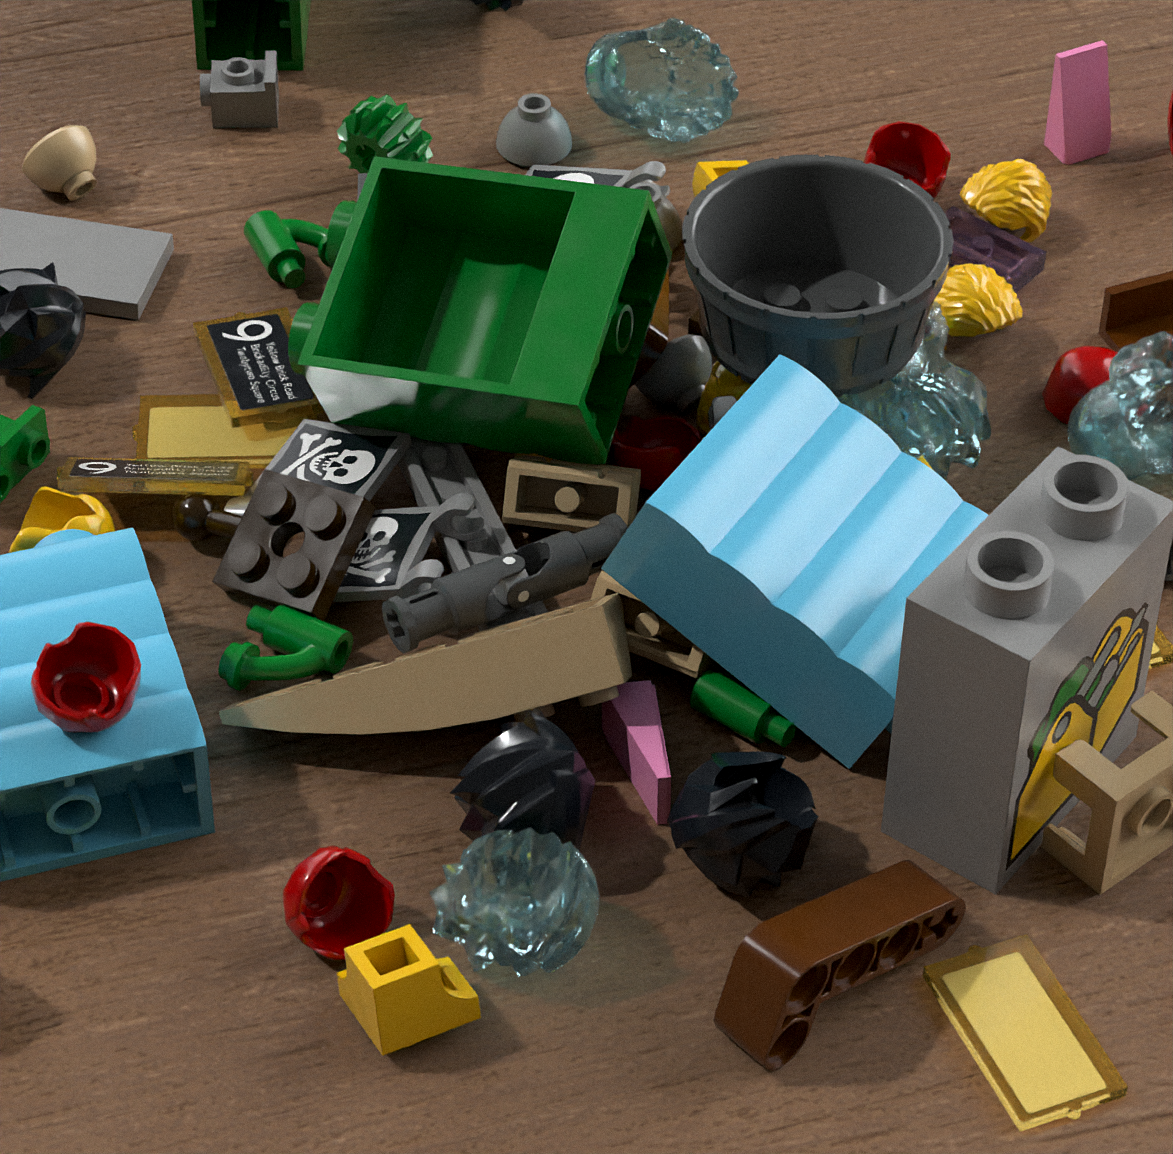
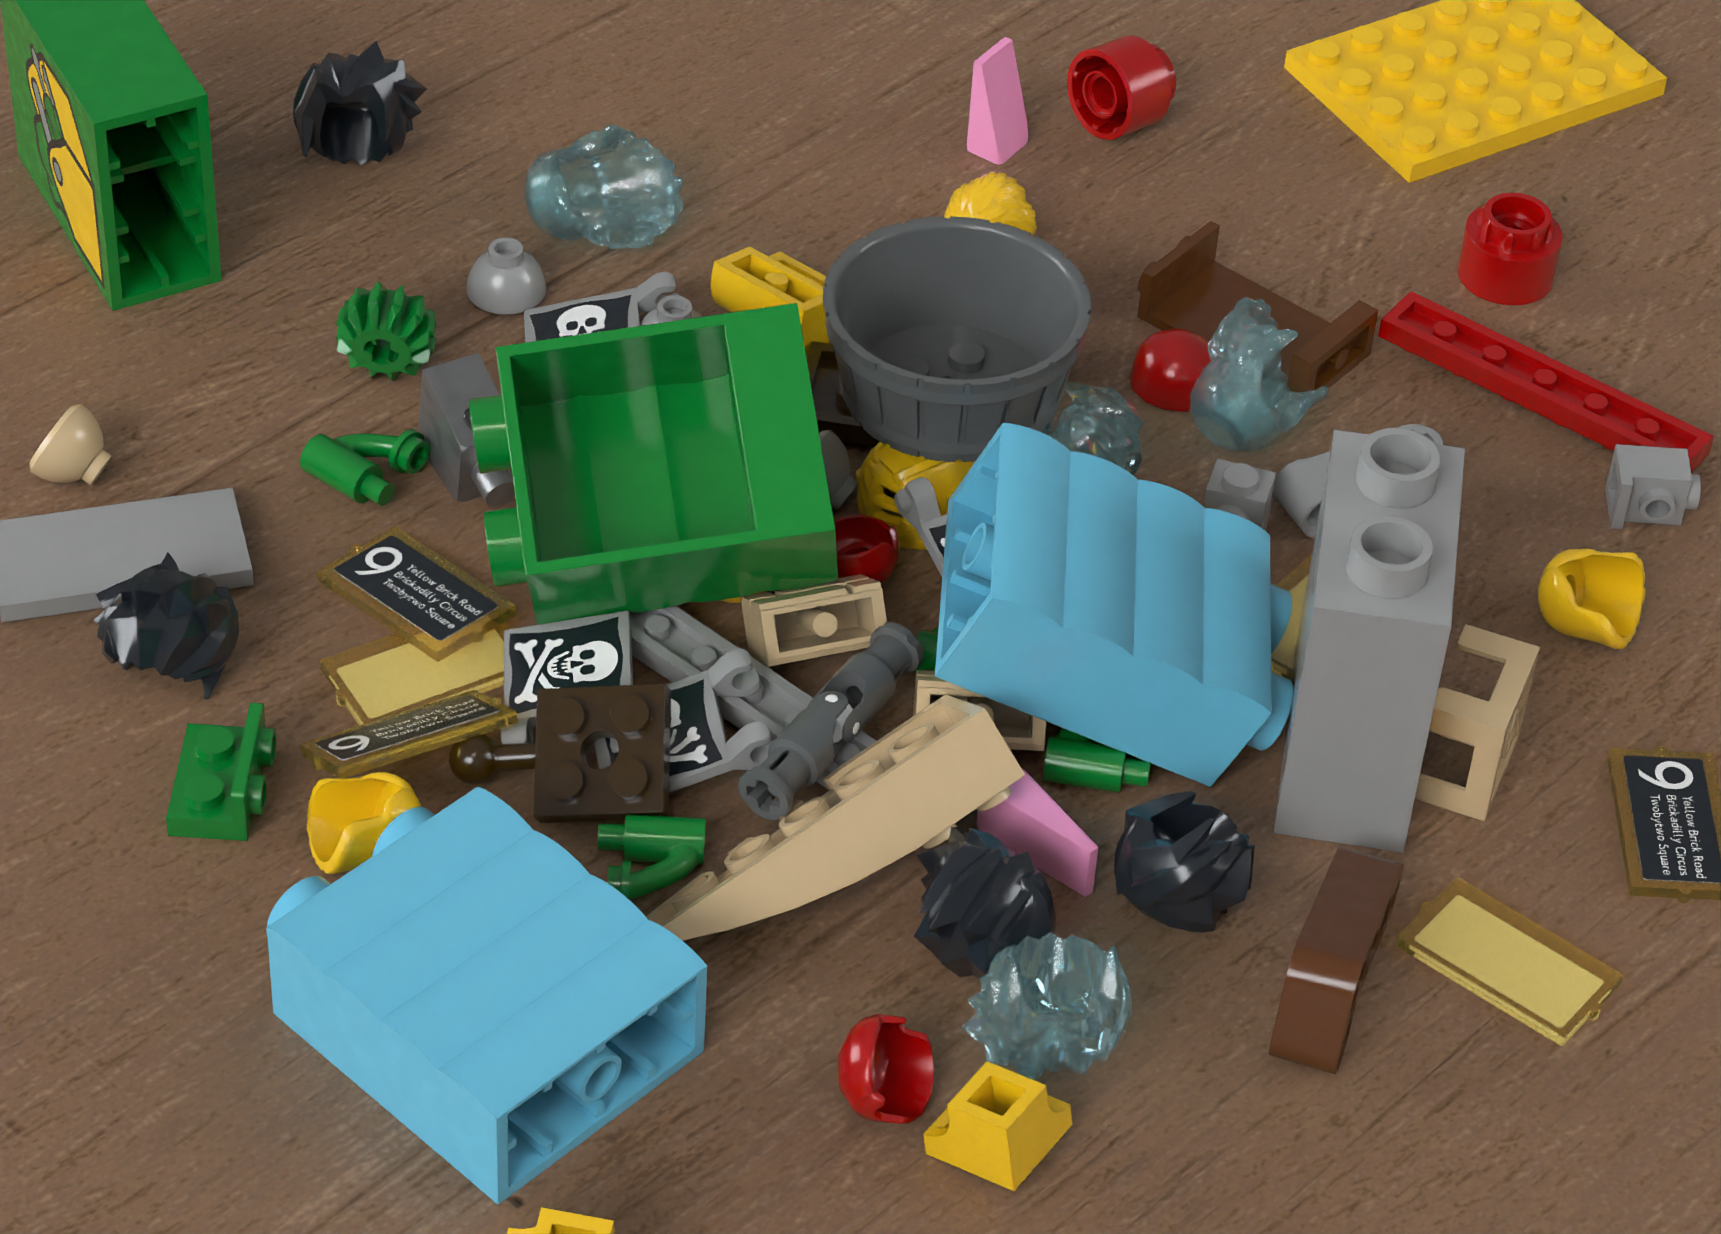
camera: 30 degrees left, 0 degrees up
(87, 679) = (581, 940): red hair -> none
(242, 92) = (194, 320): light grey brick -> none
(911, 153) = (875, 199): red hair -> none

